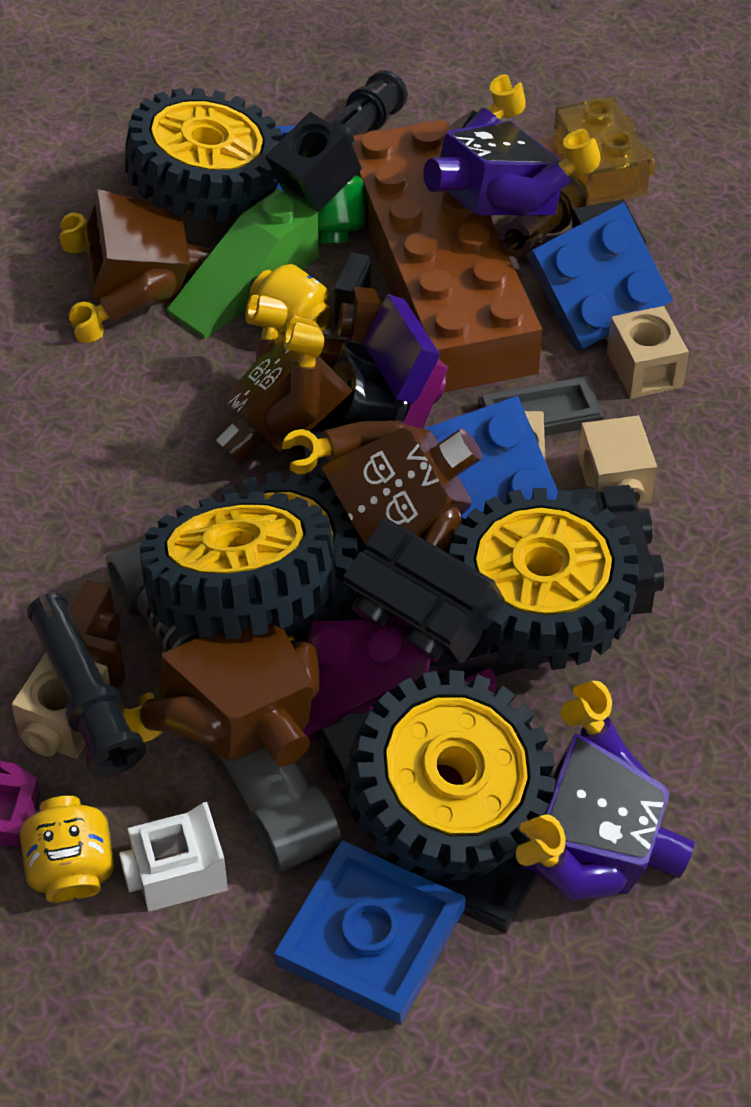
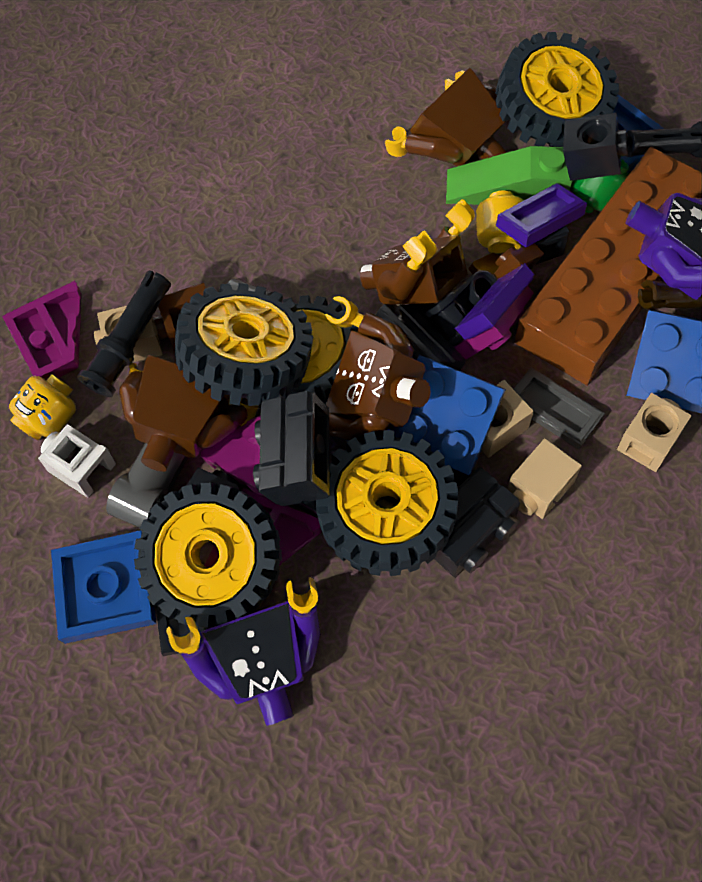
camera: 55 degrees right, 15 degrees up
(331, 258) = (541, 215): none -> dark purple tile

